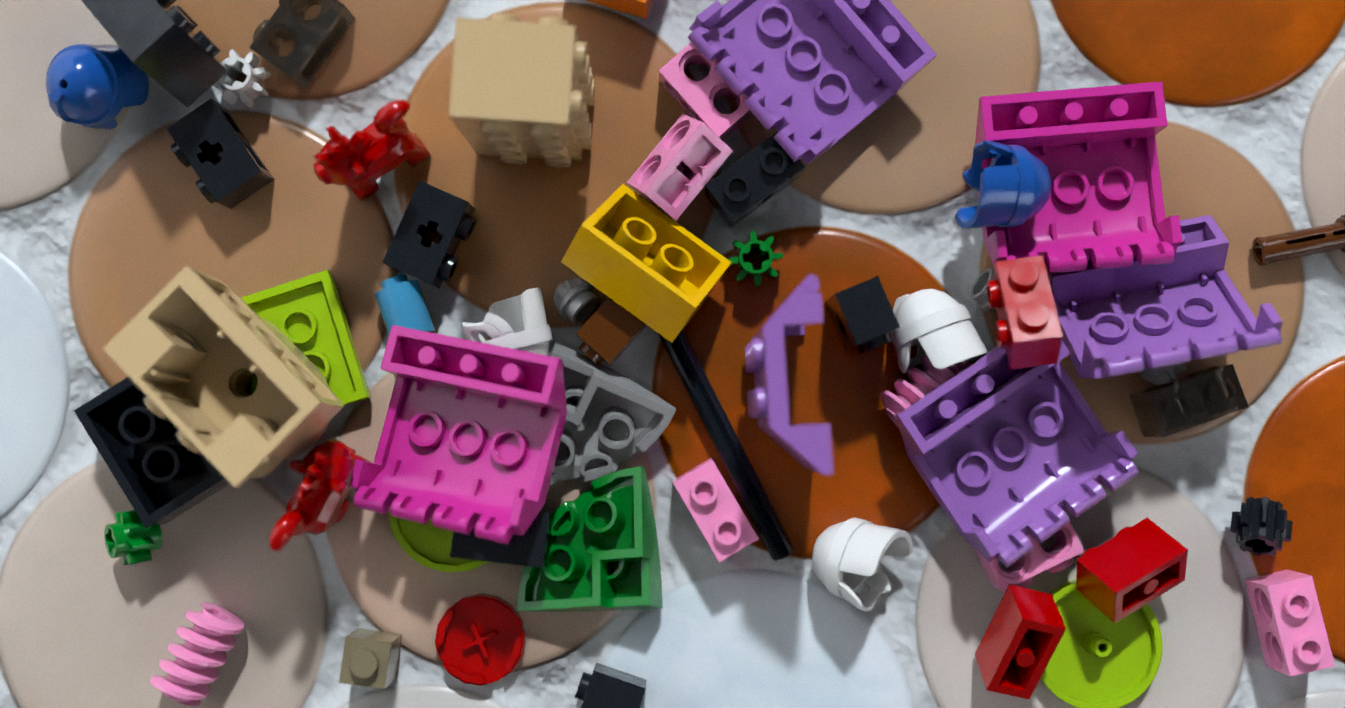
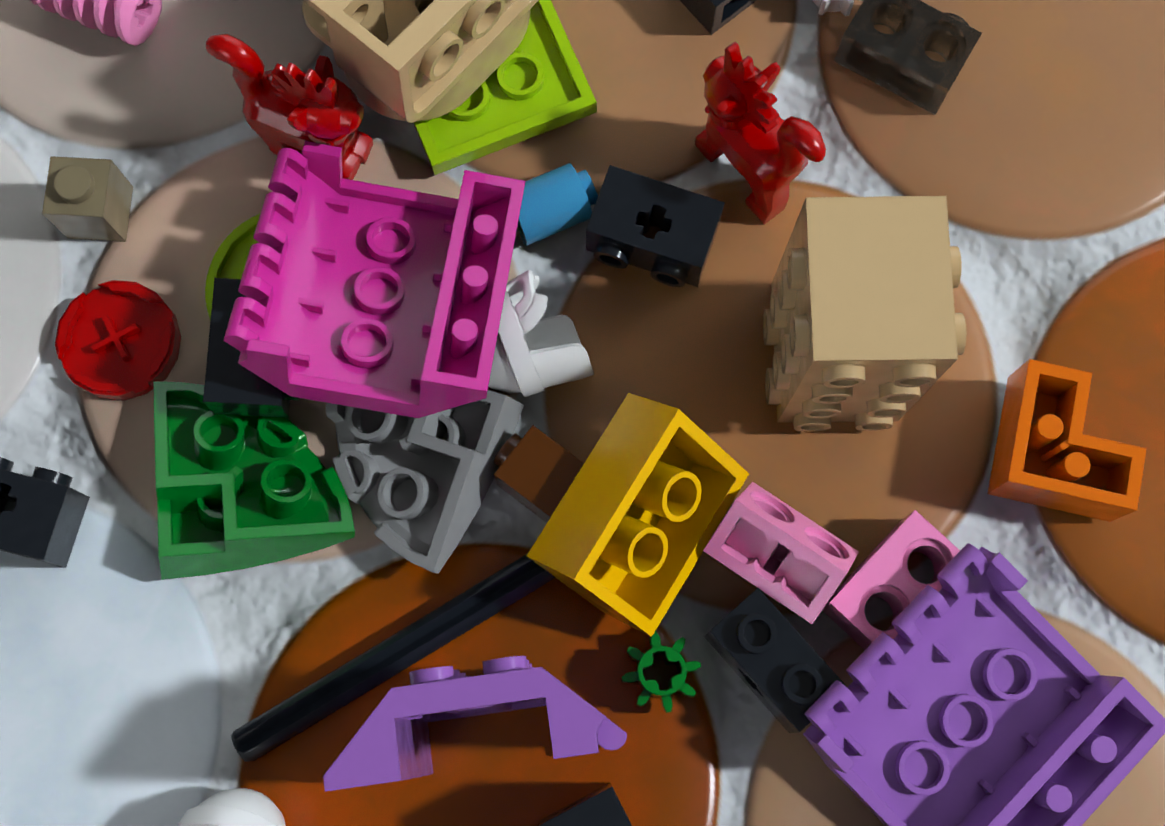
camera: 85 degrees right, 10 degrees down
(576, 300) = (580, 425): light grey plate -> none
(715, 509) = (297, 641): bright pink brick -> none

